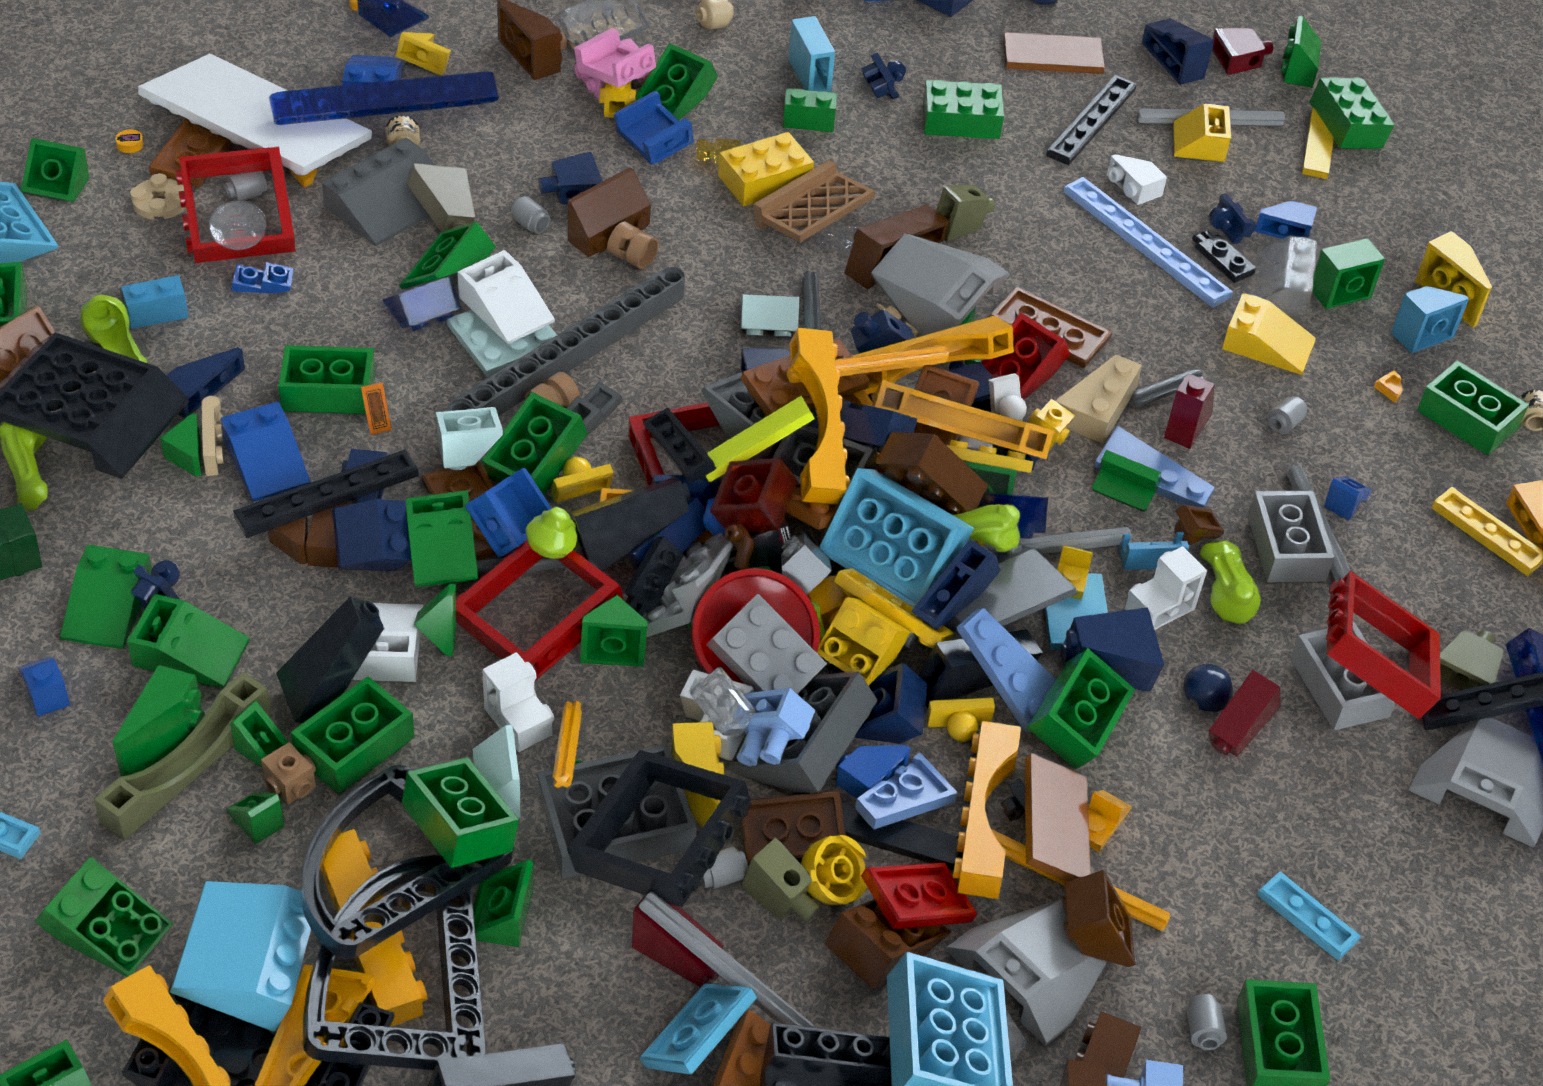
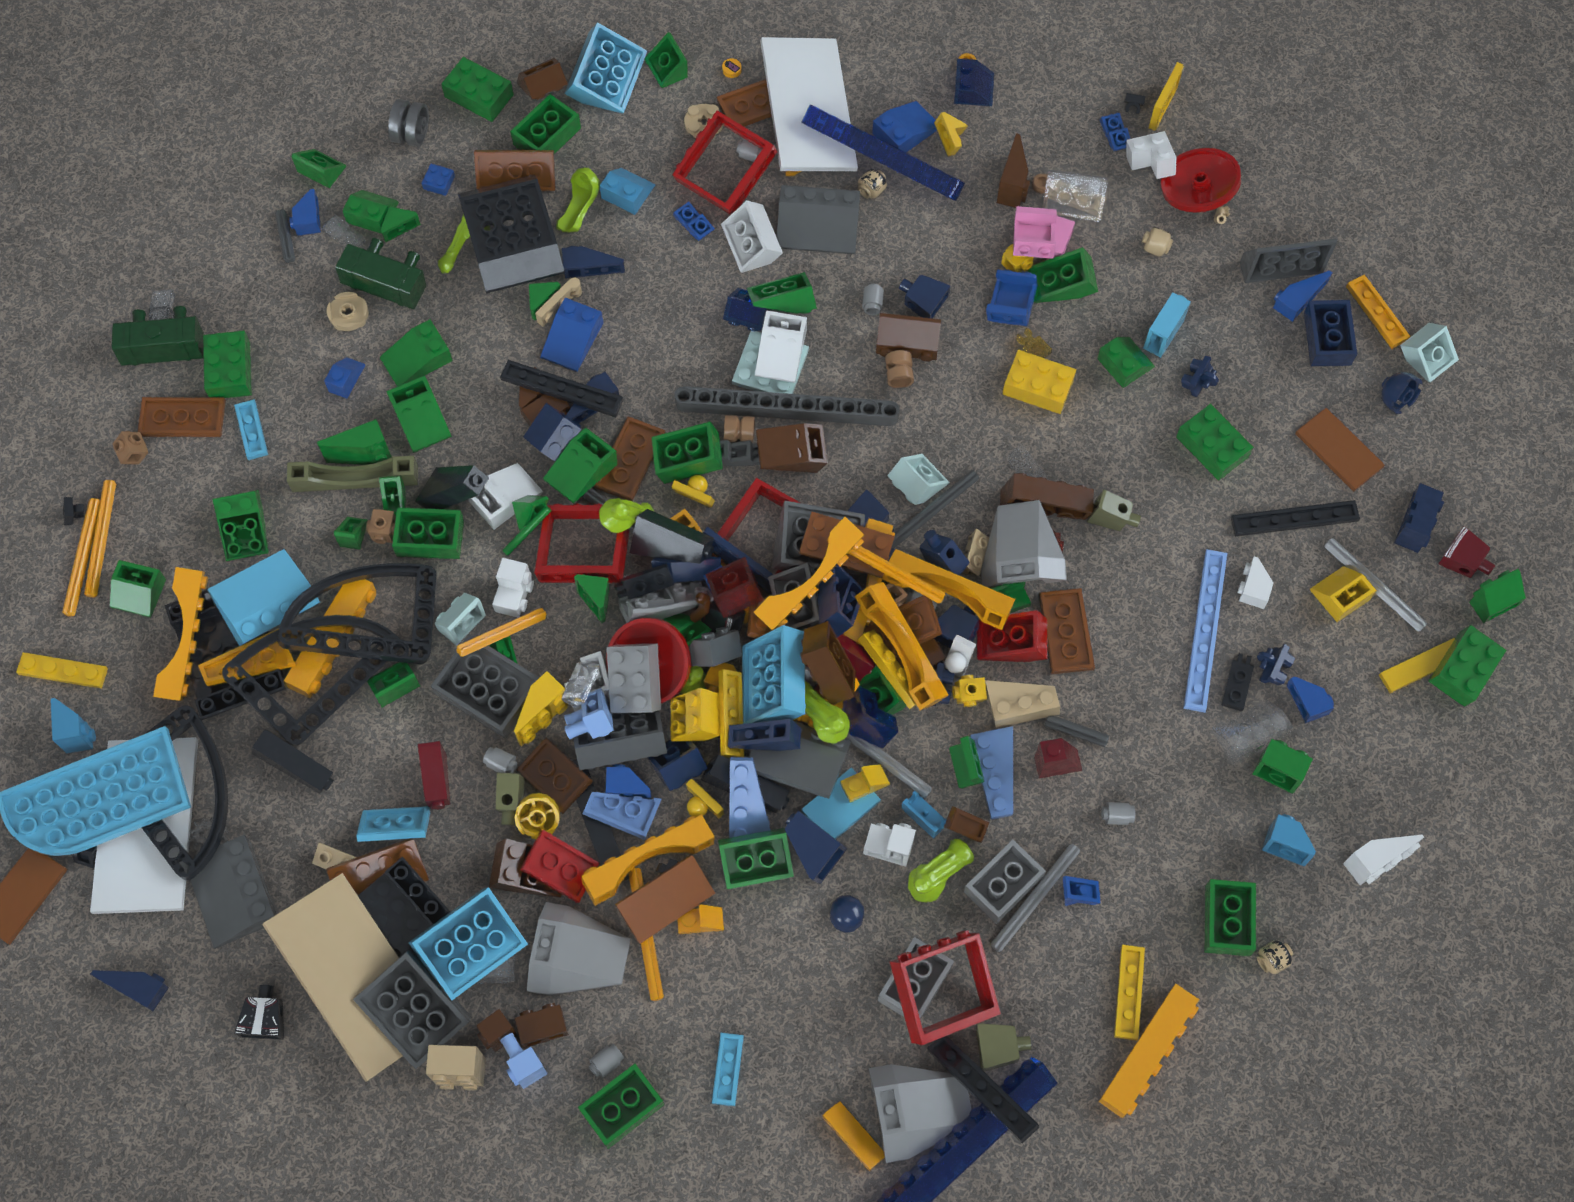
camera: 55 degrees right, 20 degrees up
(162, 578) = (435, 370): dark blue hips -> none
(235, 216) = (696, 174): clear dish -> none
(325, 379) = (644, 317): green brick -> none
(342, 249) = (751, 237): none -> white slope
(376, 408) = (646, 357): sticker -> none
(443, 194) = (837, 249): slope -> none
(459, 643) = (526, 530): none -> green bar
(459, 812) = (411, 620): green brick -> none
(466, 435) = (663, 413): light aqua slope -> none
(507, 510) = (626, 480): blue panel -> none
(589, 845) = (467, 689): black window -> none
(630, 367) = (792, 448): none -> reddish brown slope
(679, 445) = (745, 521): black tile -> none
(720, 960) = (432, 810): light grey axle -> none
(760, 436) = (771, 556): neon yellow tile -> none
(807, 192) = (1034, 415): medium nougat fence -> none
(1098, 919) = (616, 966): reddish brown slope -> none
(1245, 714) = (837, 946): dark red slope -> none
(1268, 335) = (1182, 758): yellow slope -> none
(1390, 386) = (1213, 857): light orange tile -> none
(1454, 267) = (1352, 824): yellow slope -> none
(1480, 855) = (854, 1135): none -> light orange slope
(1503, 273) = (1380, 856): none -> white slope

